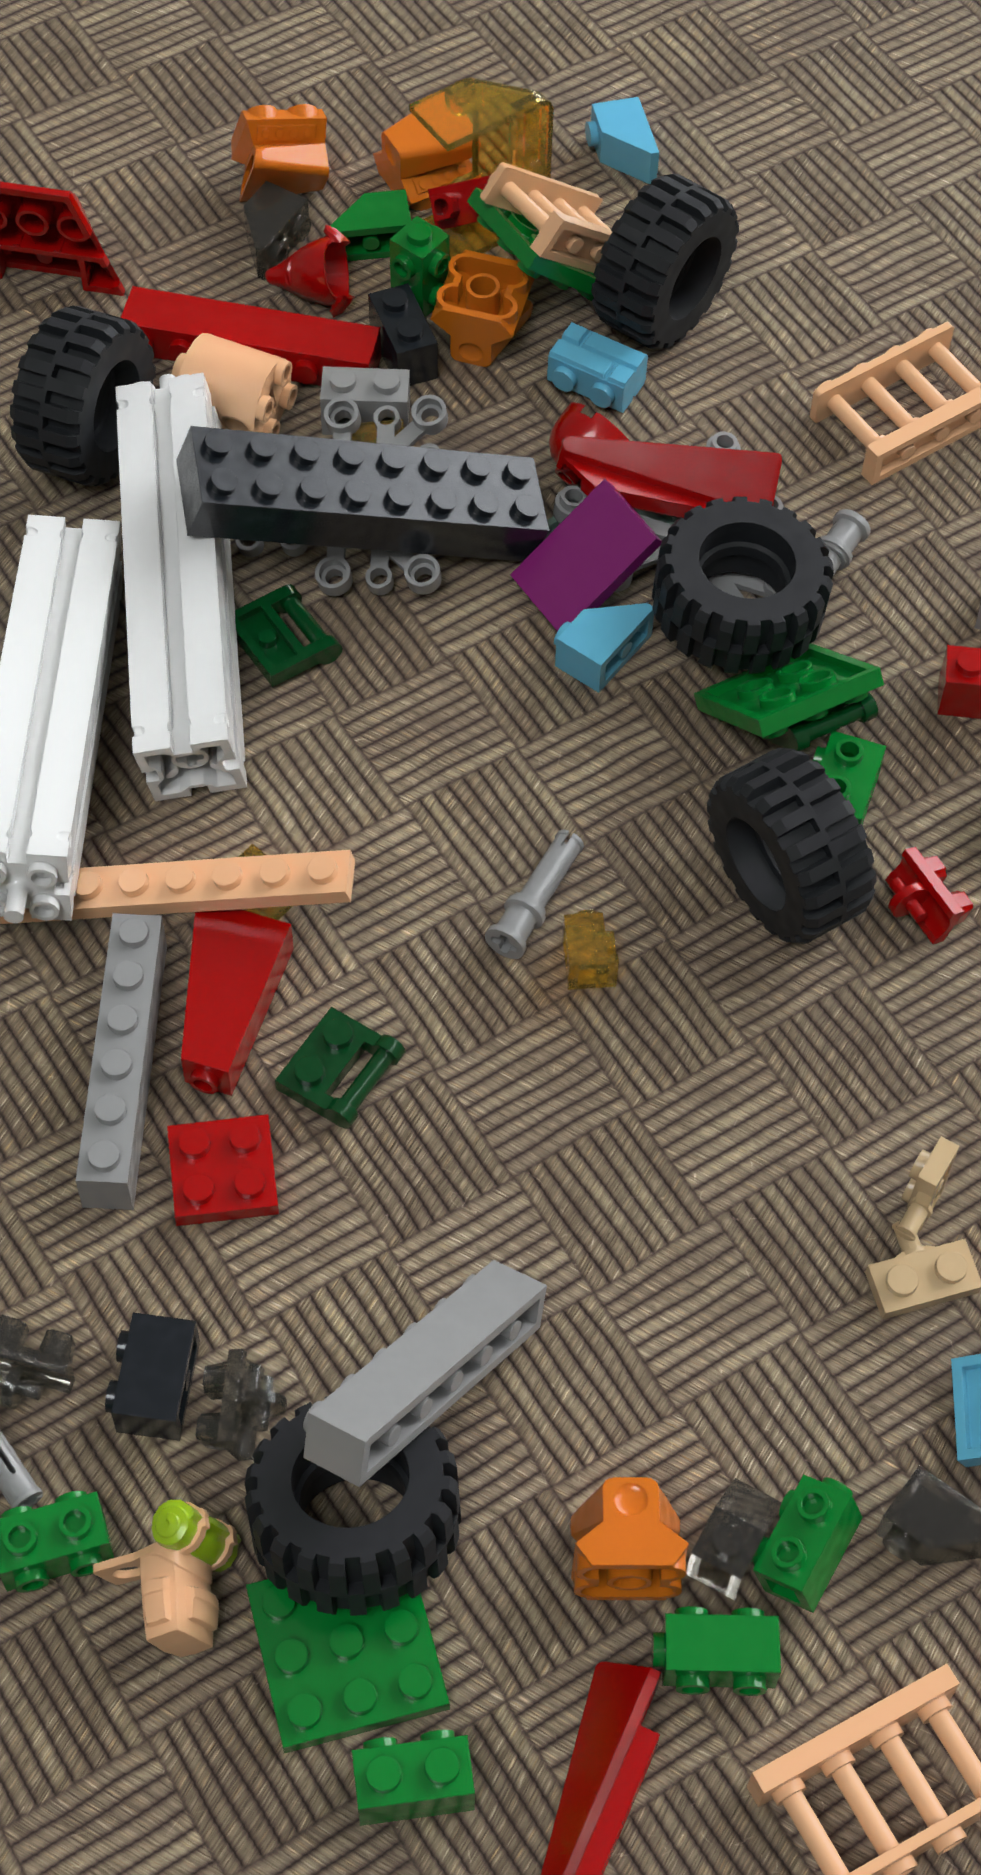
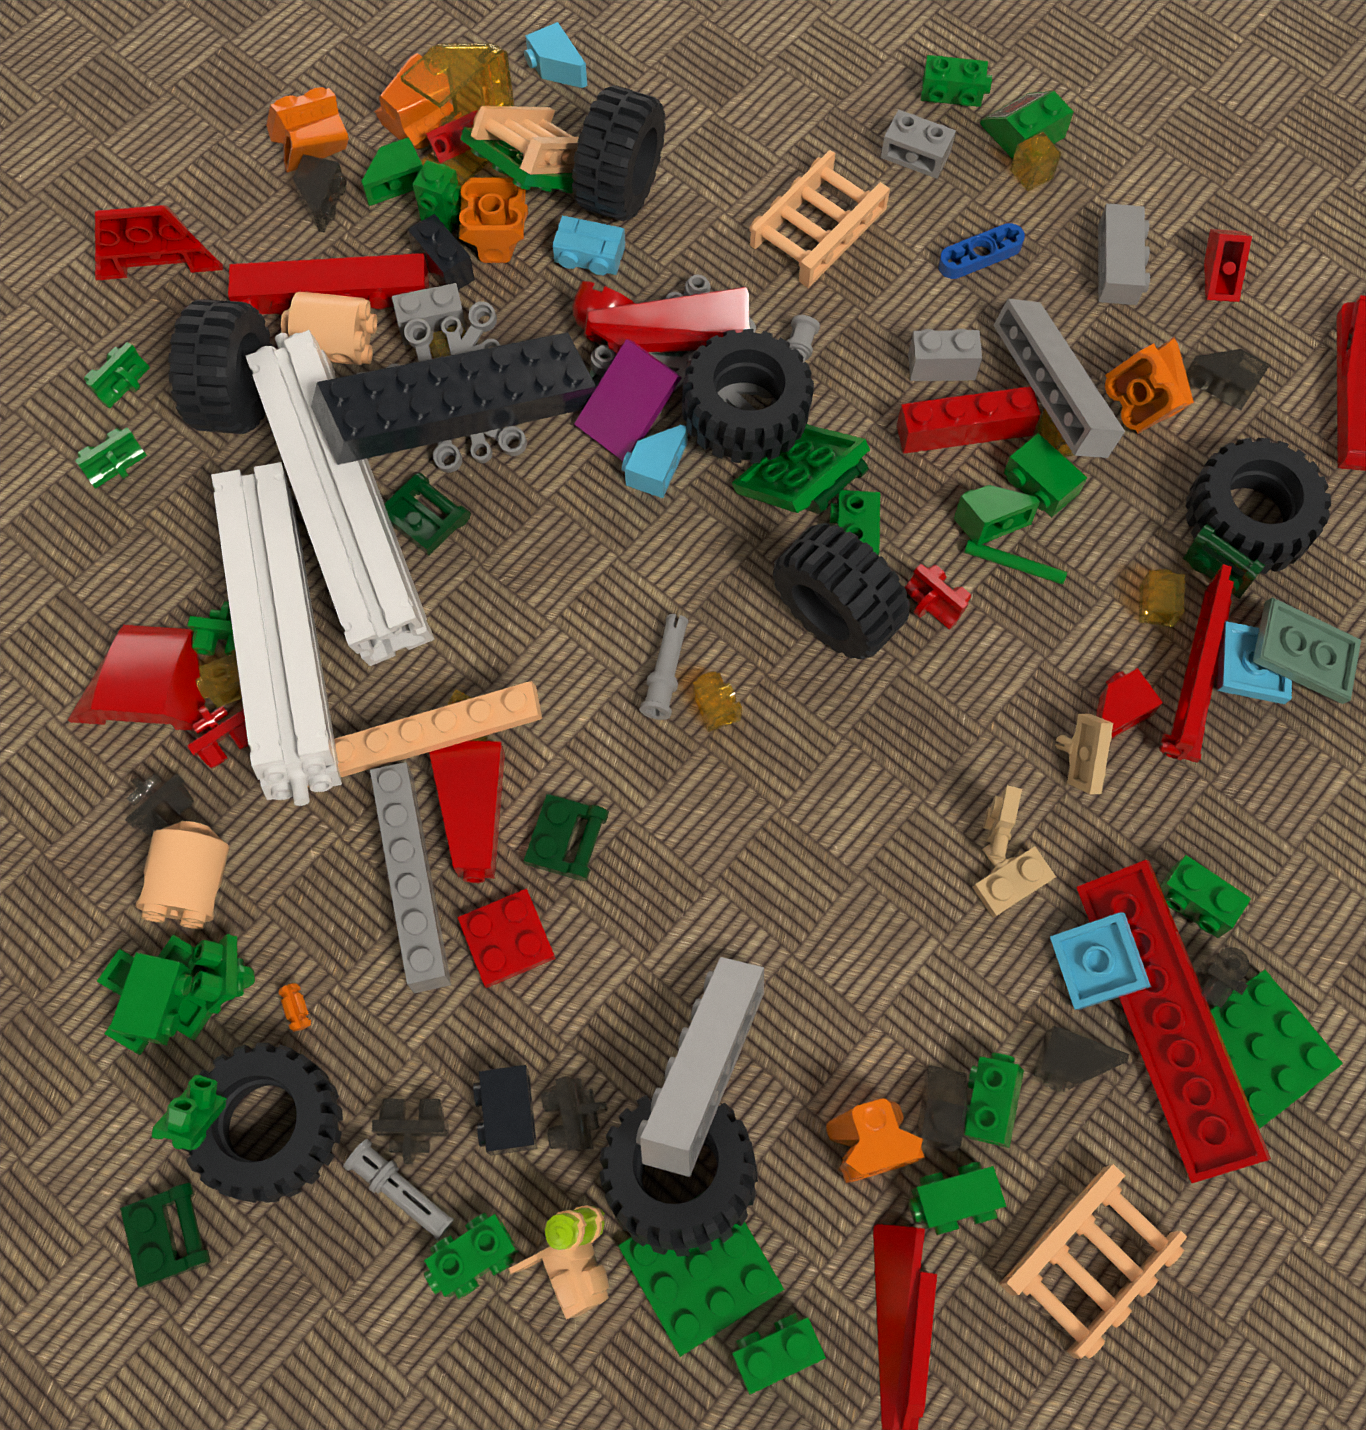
camera: 15 degrees left, 10 degrees up
(317, 272) = (363, 218): red hat -> none

